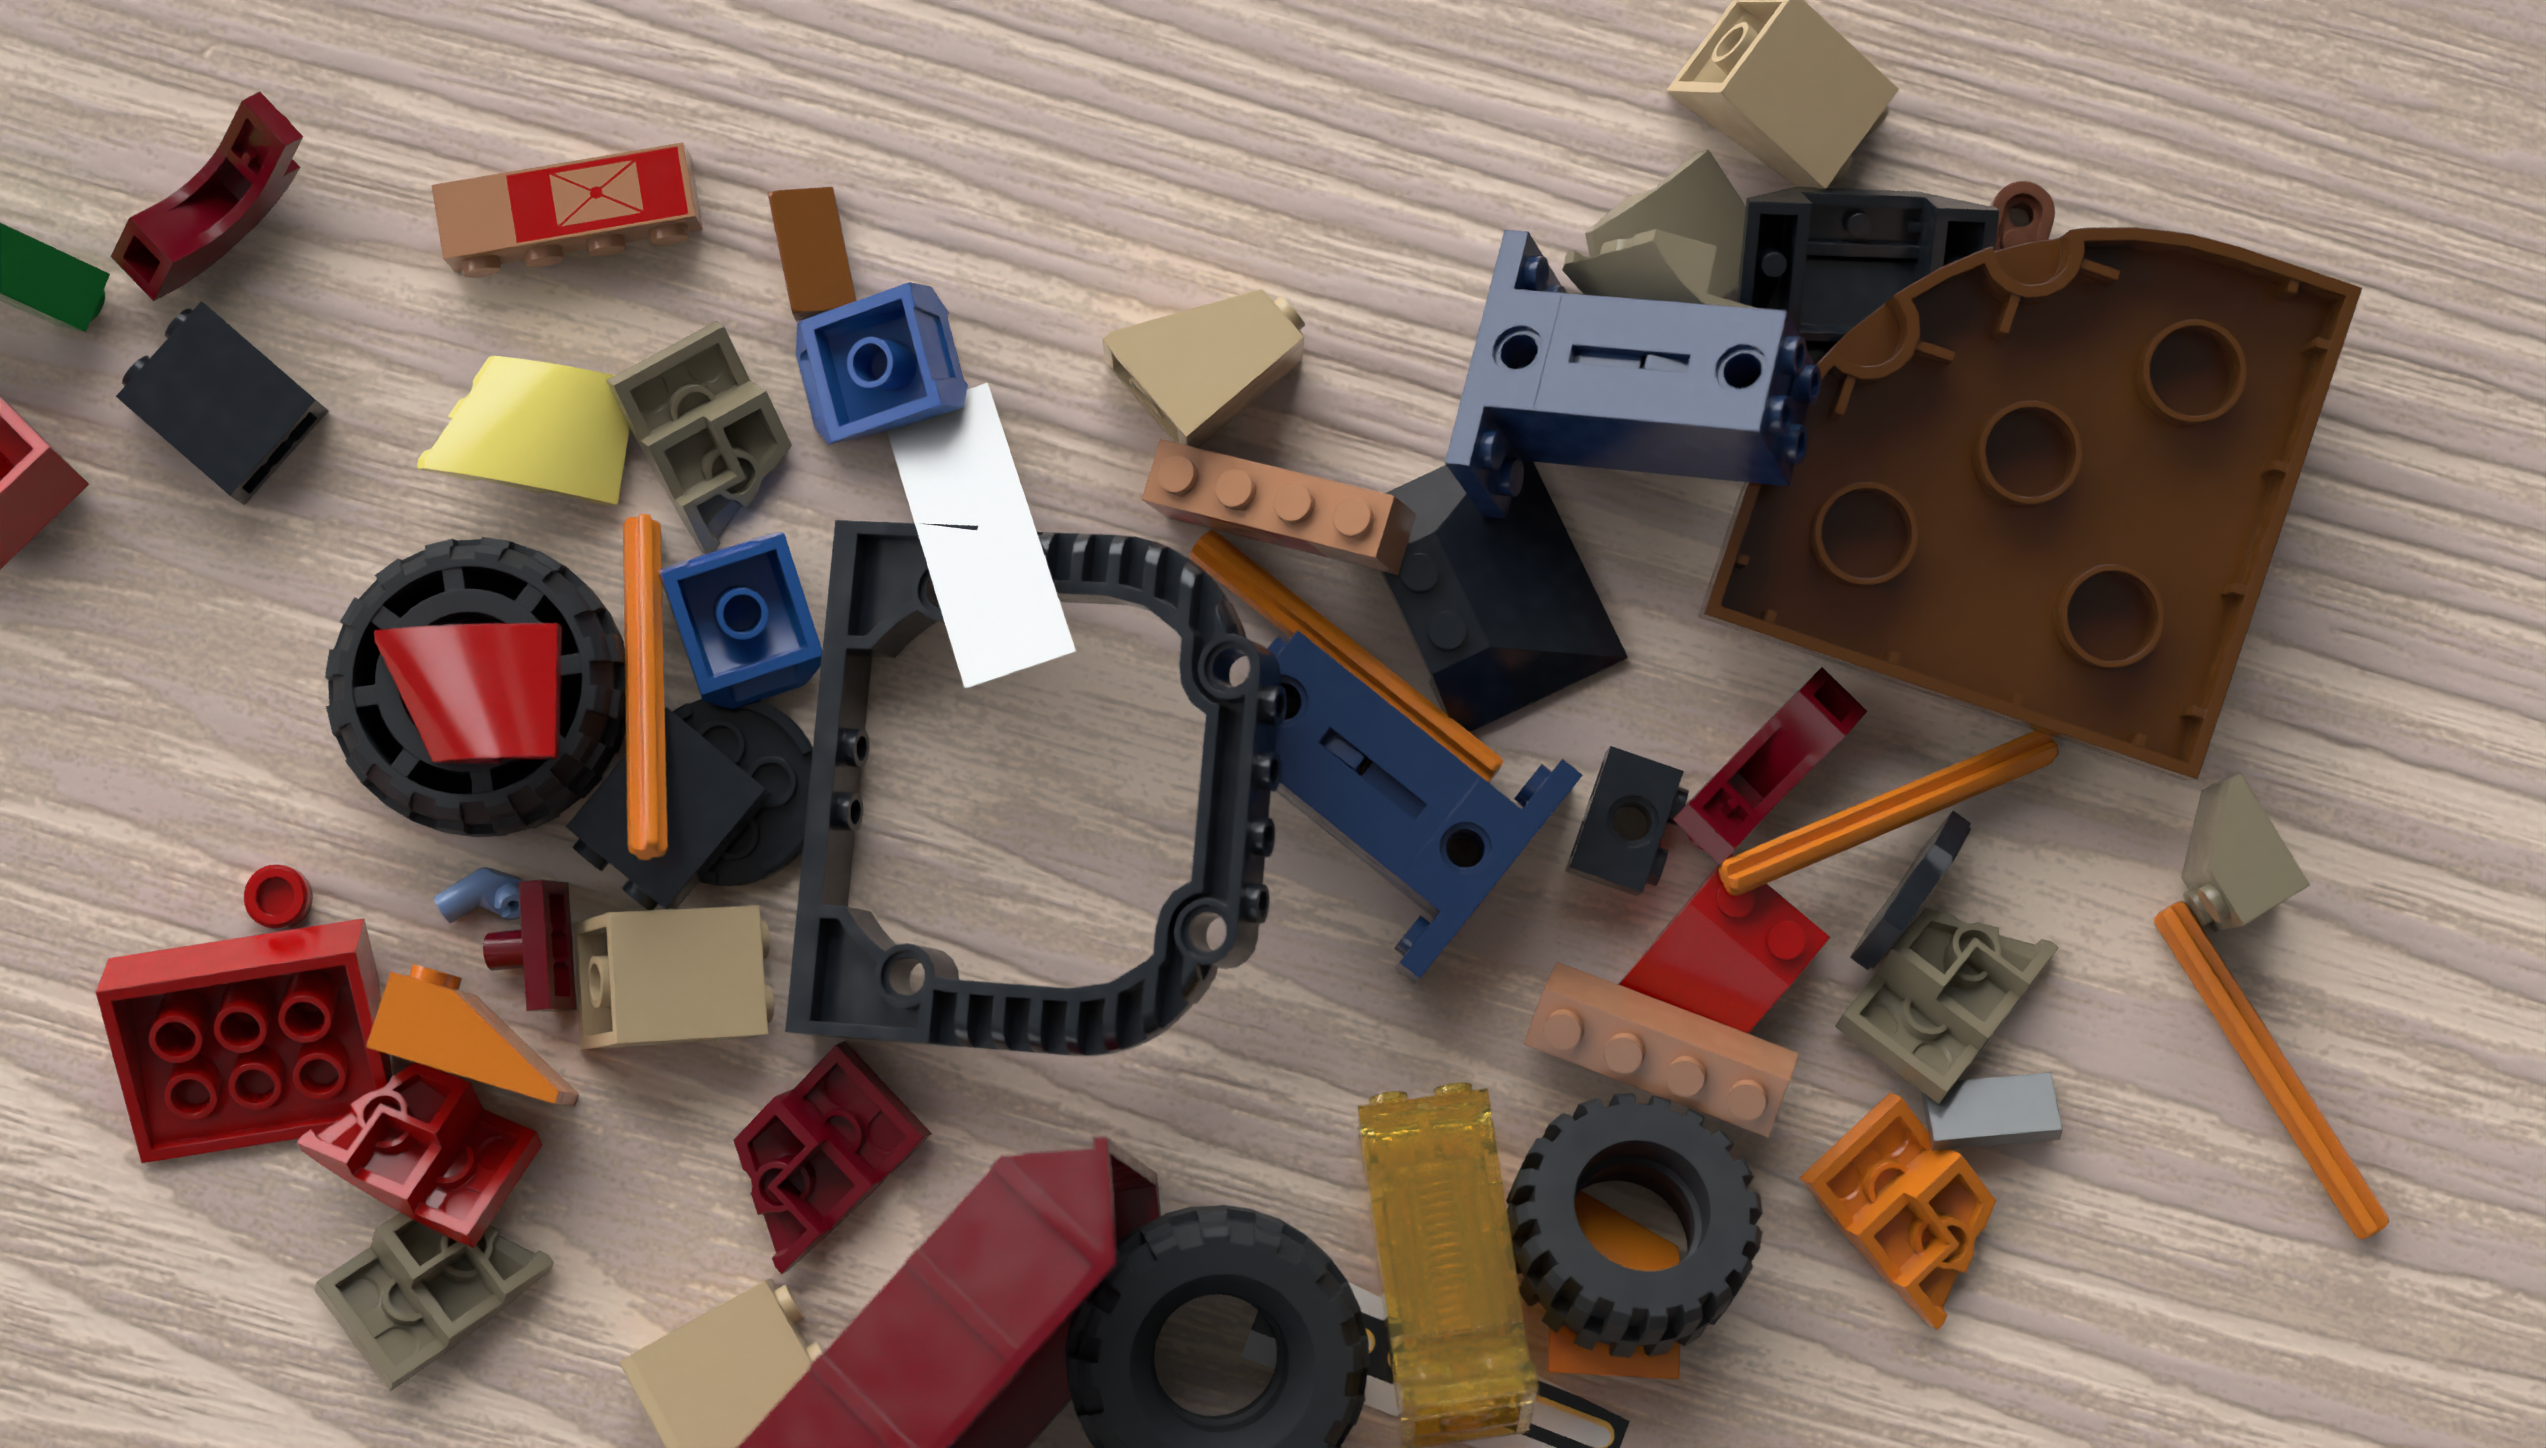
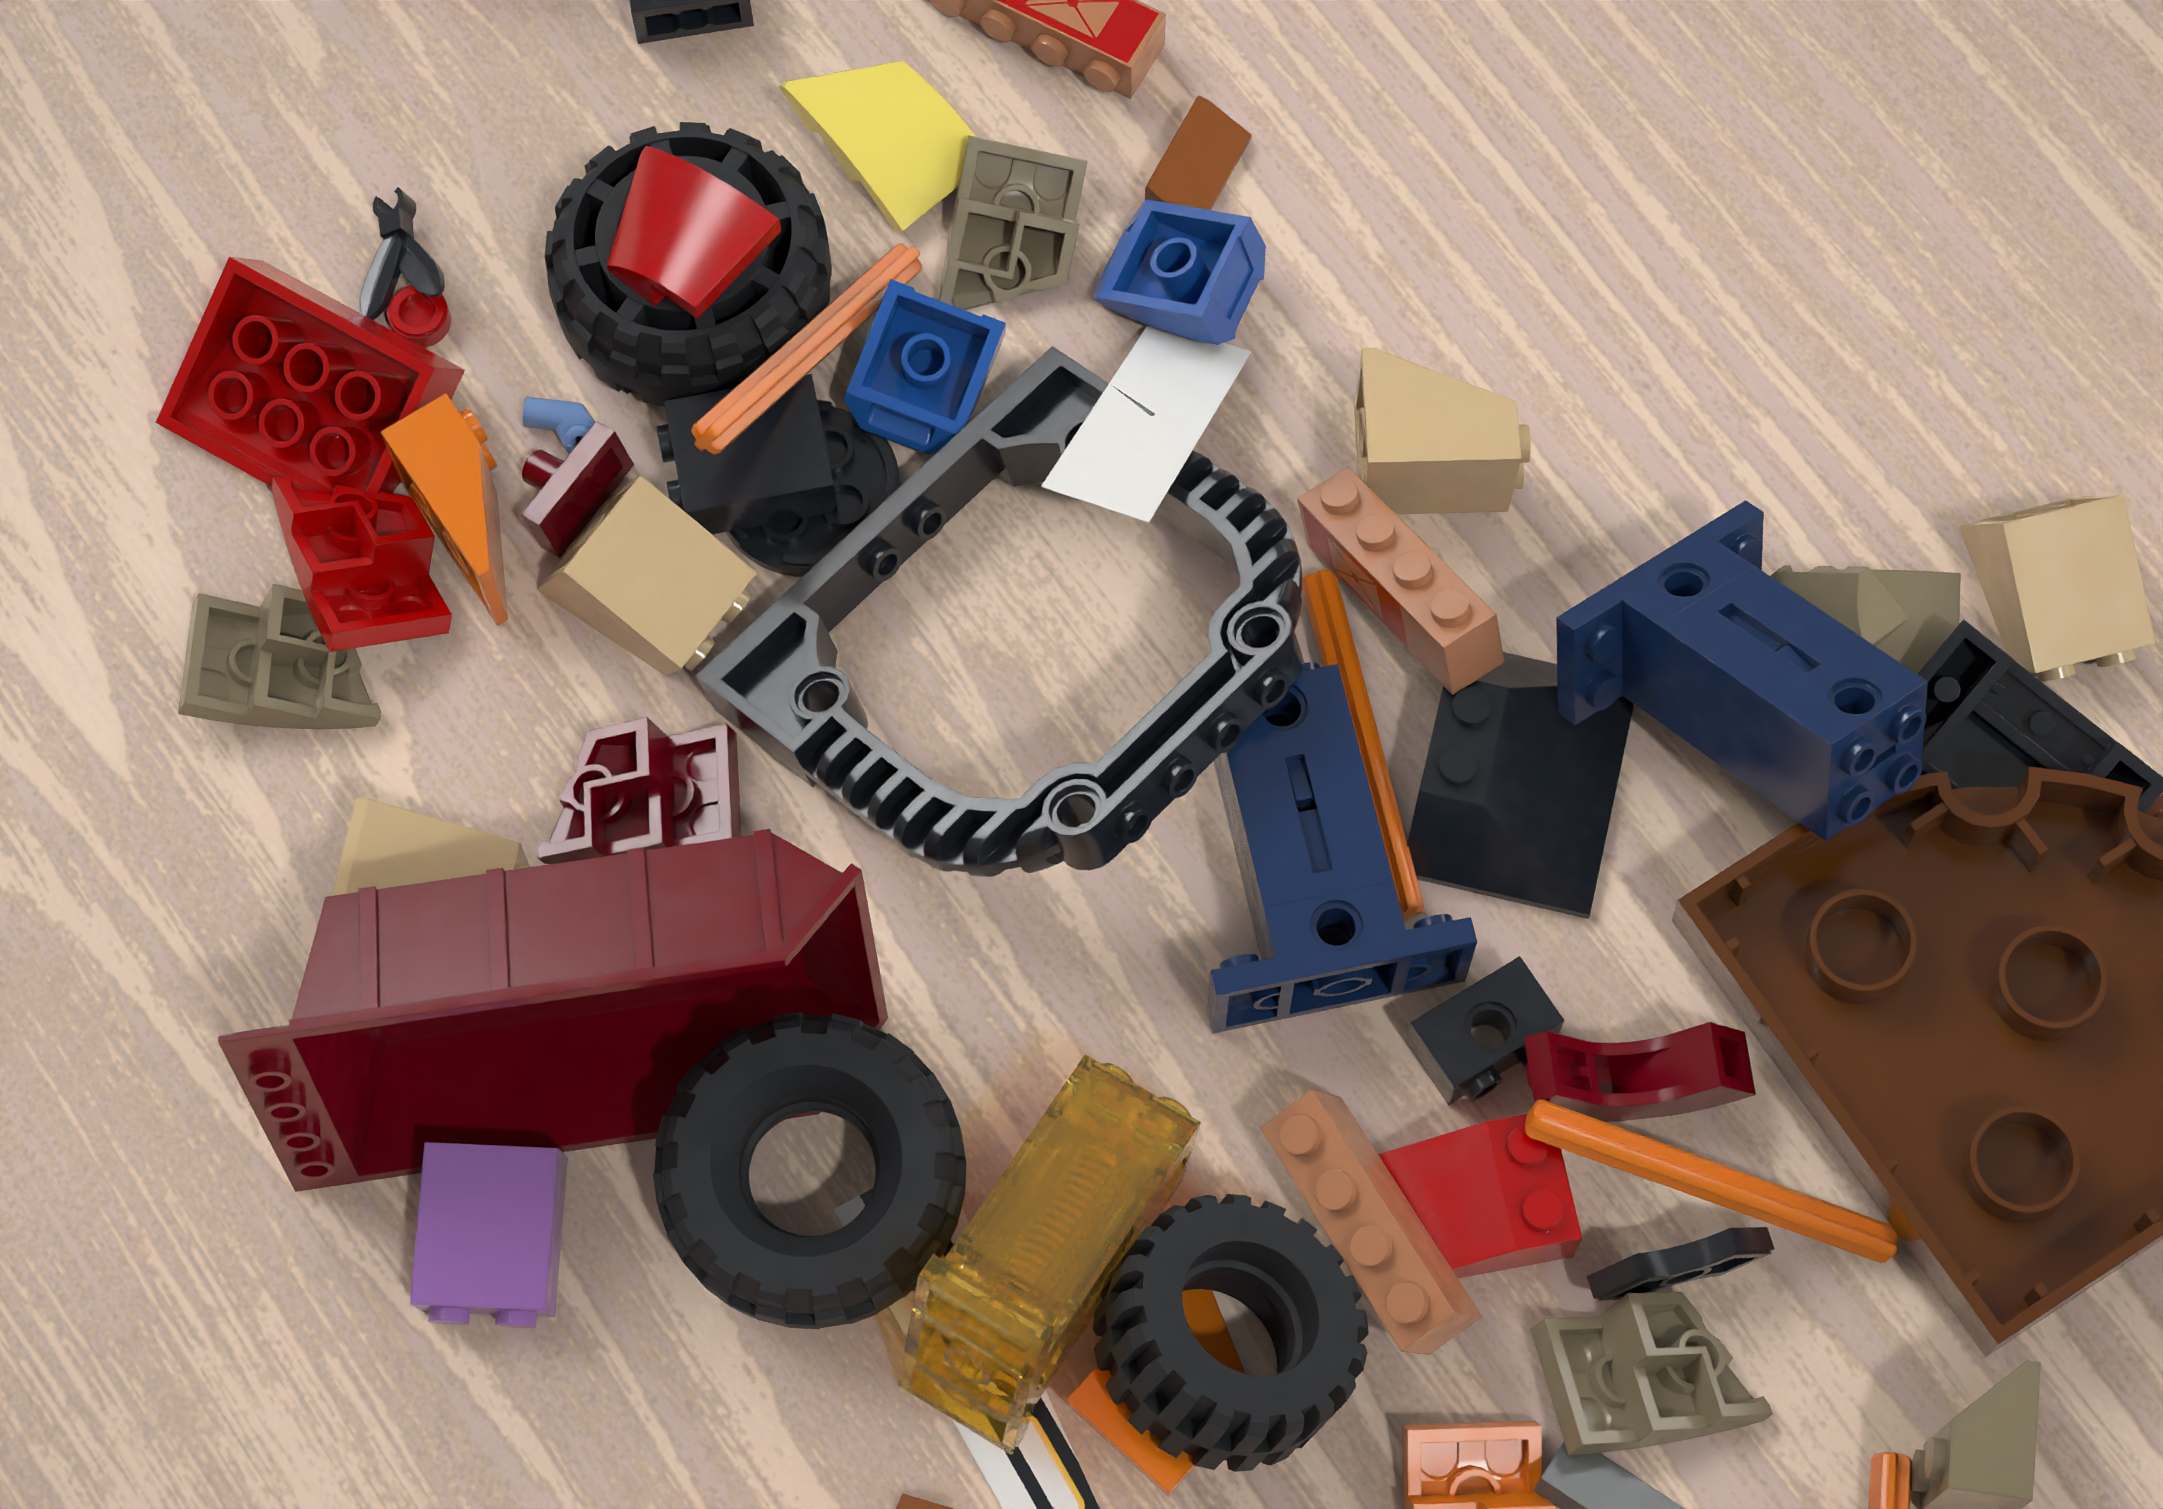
camera: 45 degrees right, 15 degrees down
(215, 862) = (398, 254): none -> black piece

